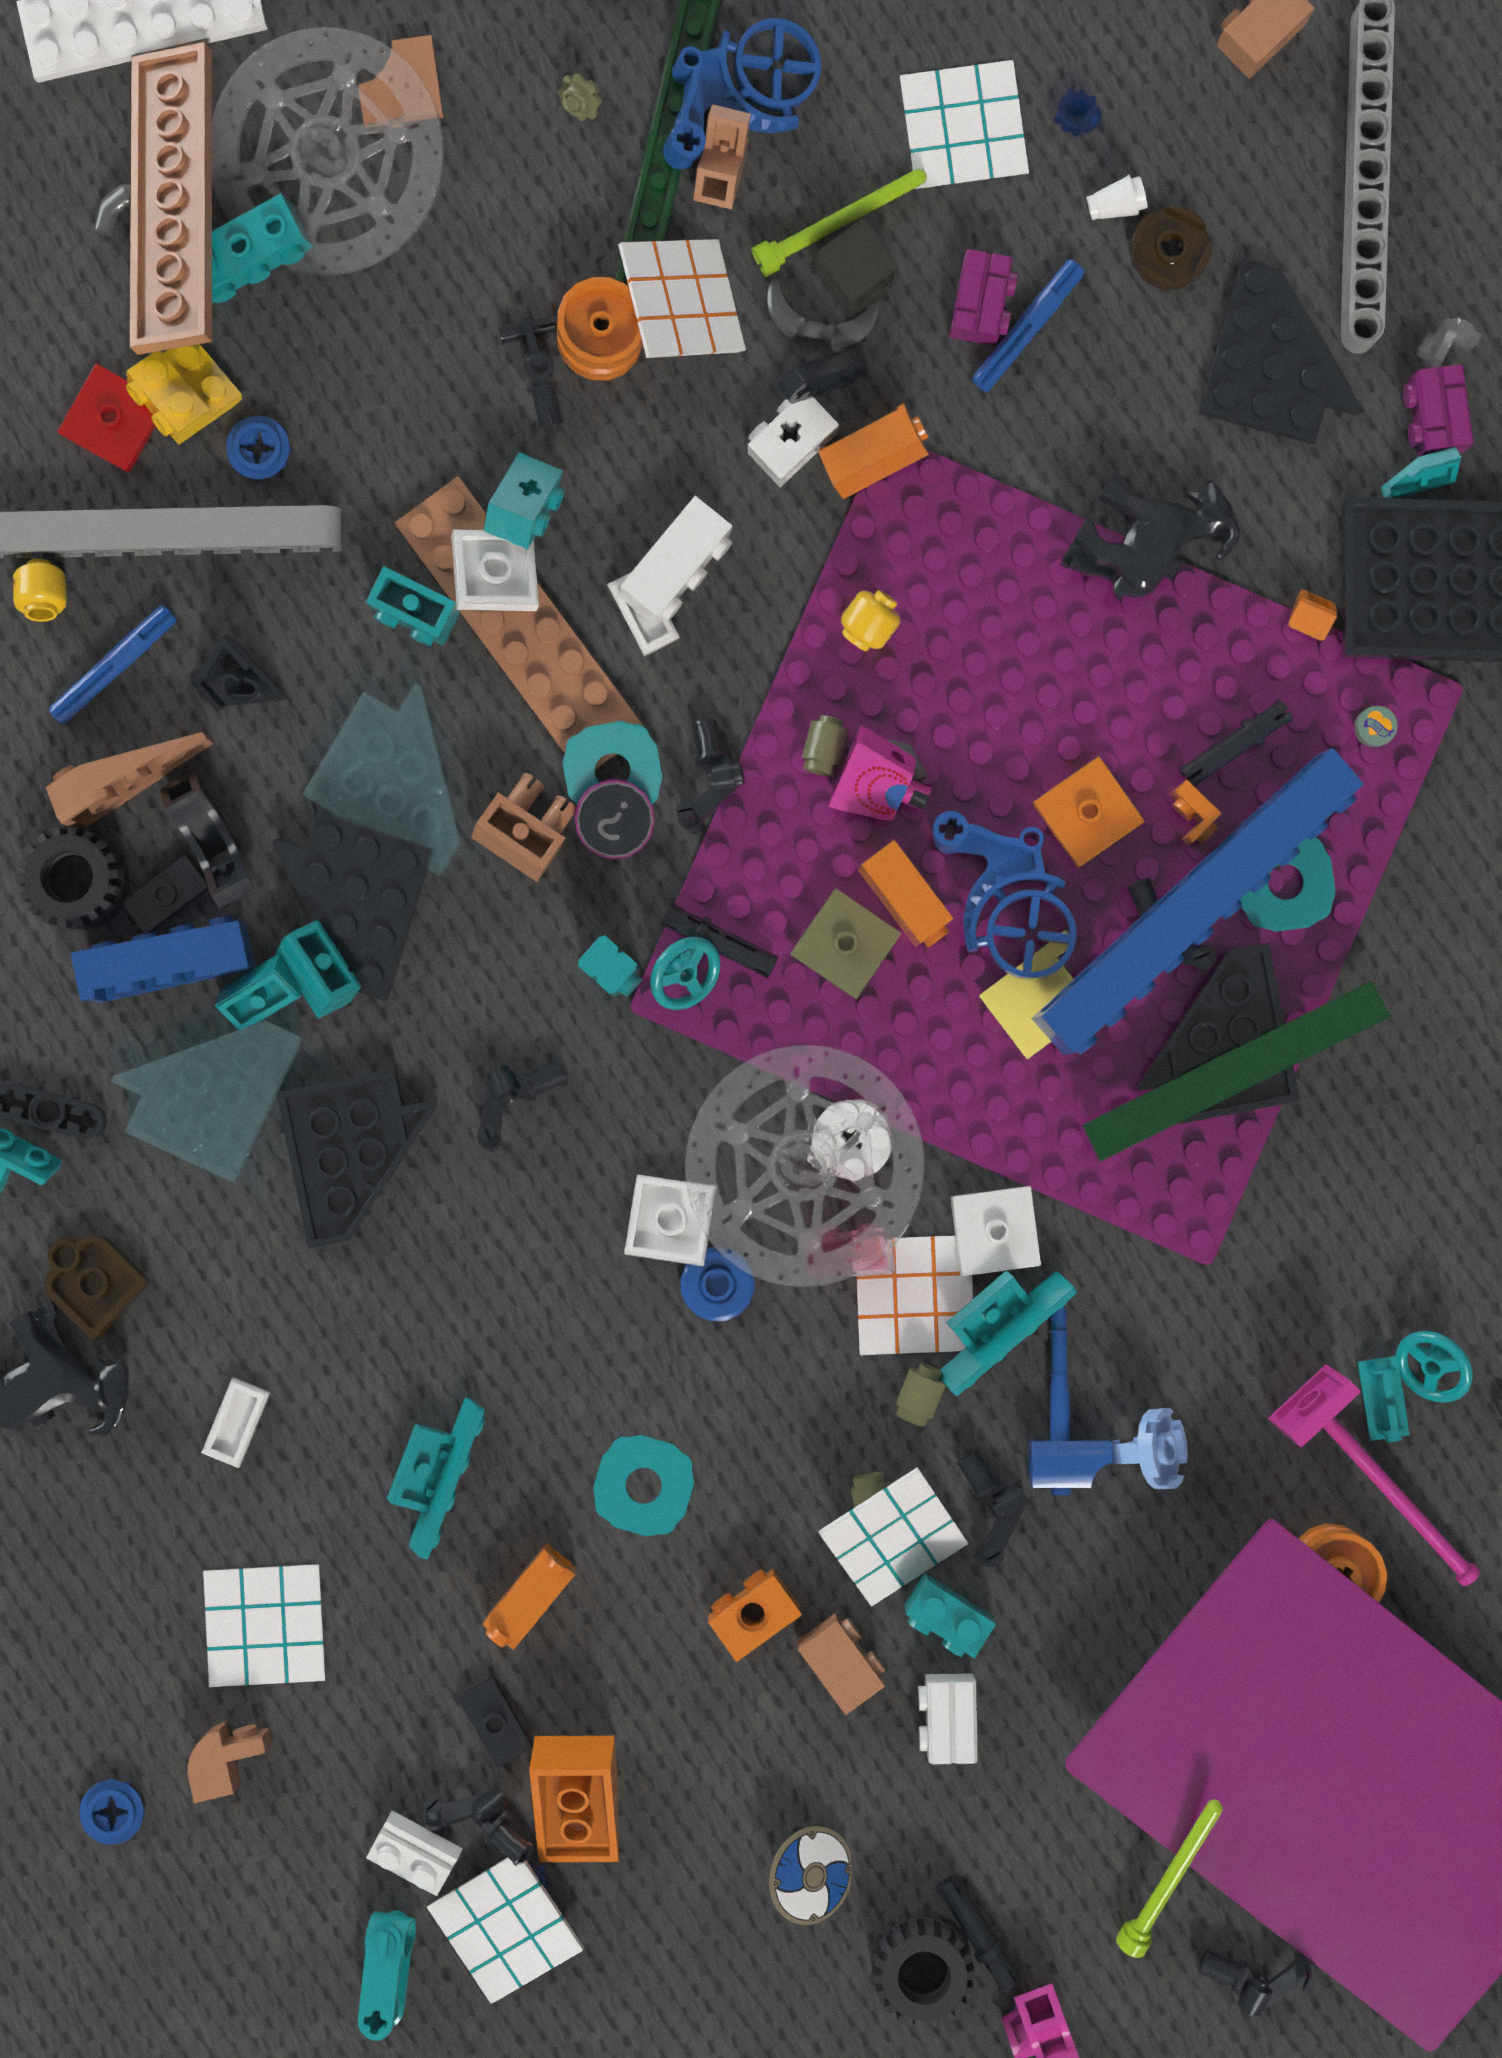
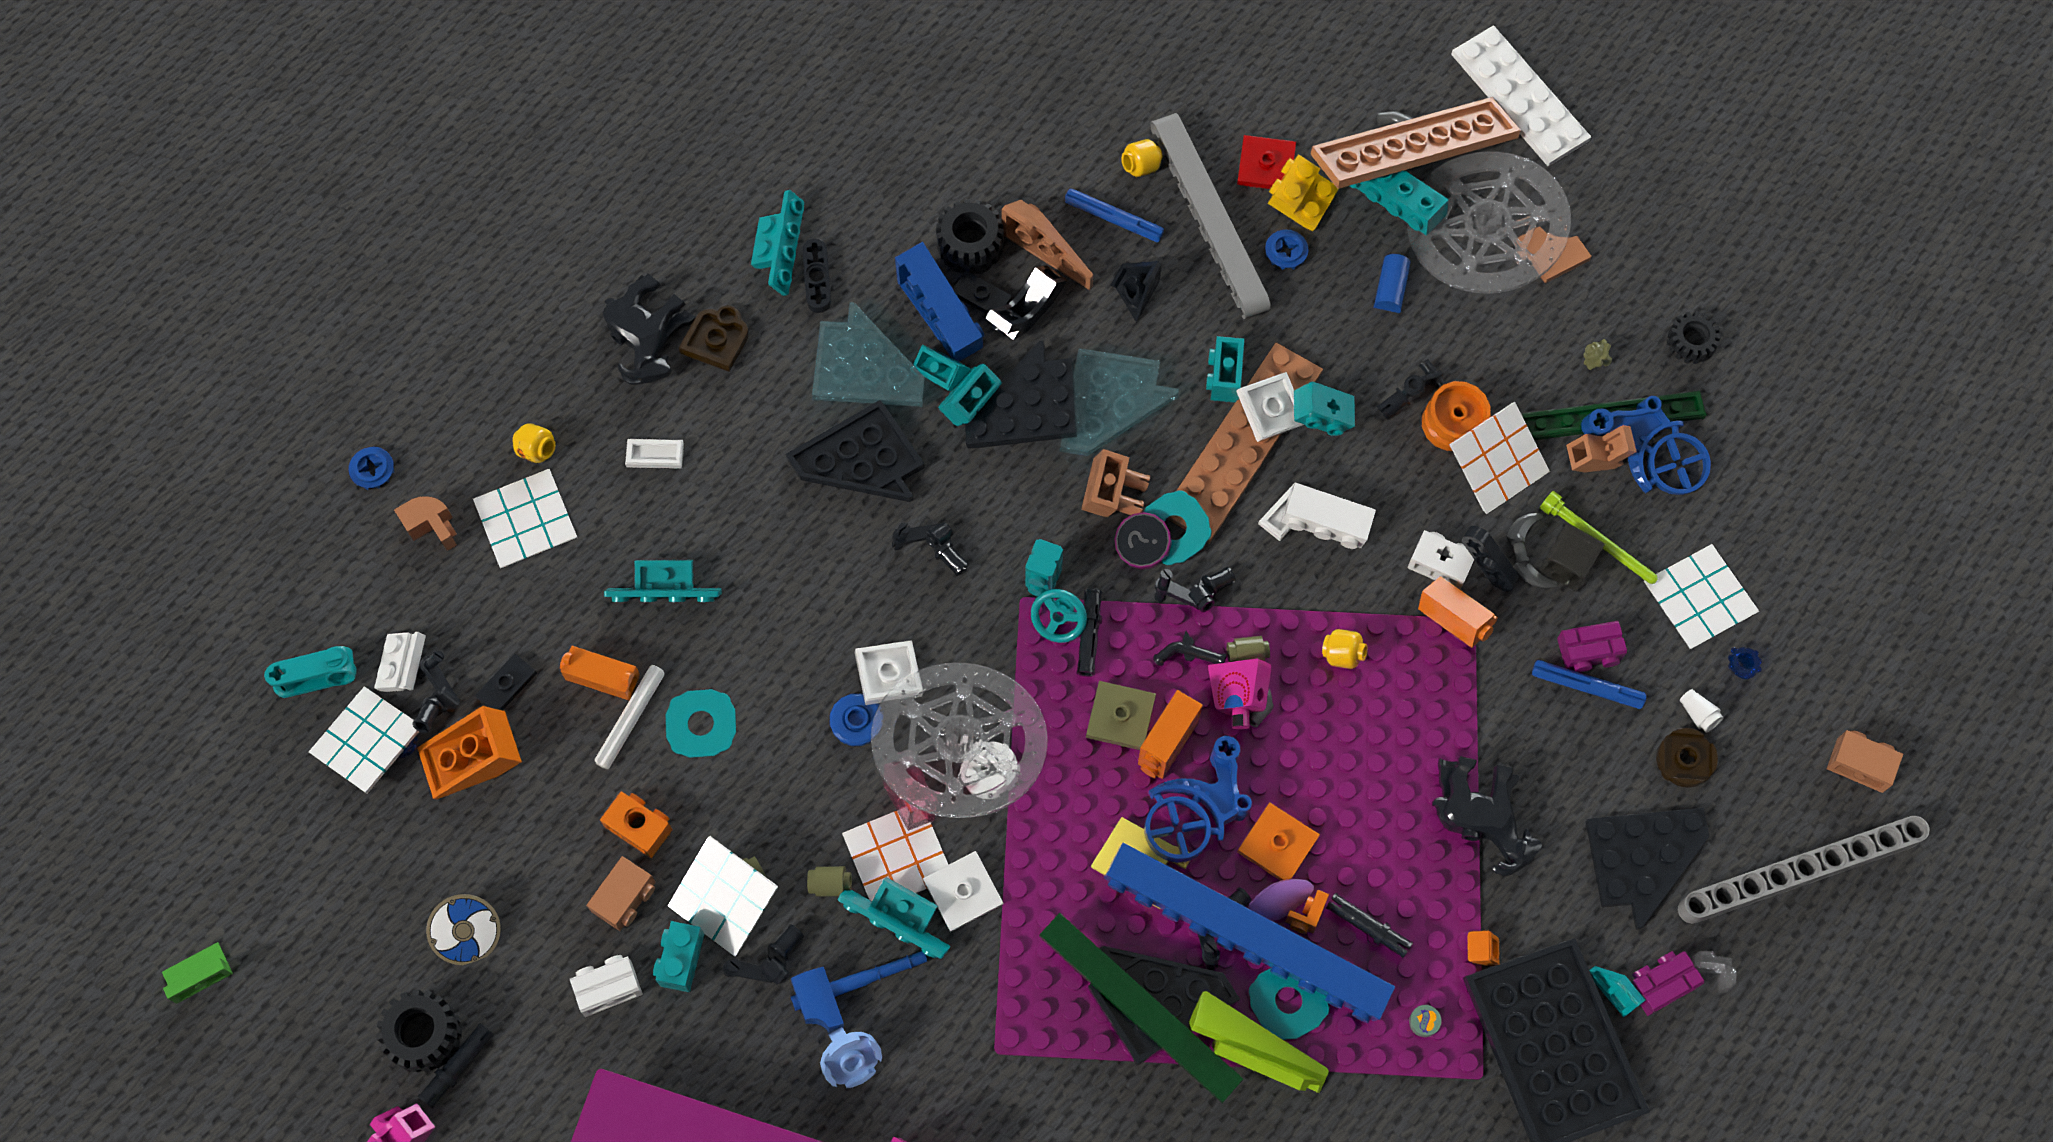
camera: 70 degrees right, 20 degrees down
(161, 1582) = (533, 443): none -> yellow head
(365, 326) = (1392, 283): none -> blue brick
(601, 1575) = (629, 717): none -> white axle
(794, 819) = (1190, 652): none -> black piece
(1162, 841) = (1281, 897): none -> medium lavender arm
(1333, 951) = (1254, 1046): none -> lime wedge

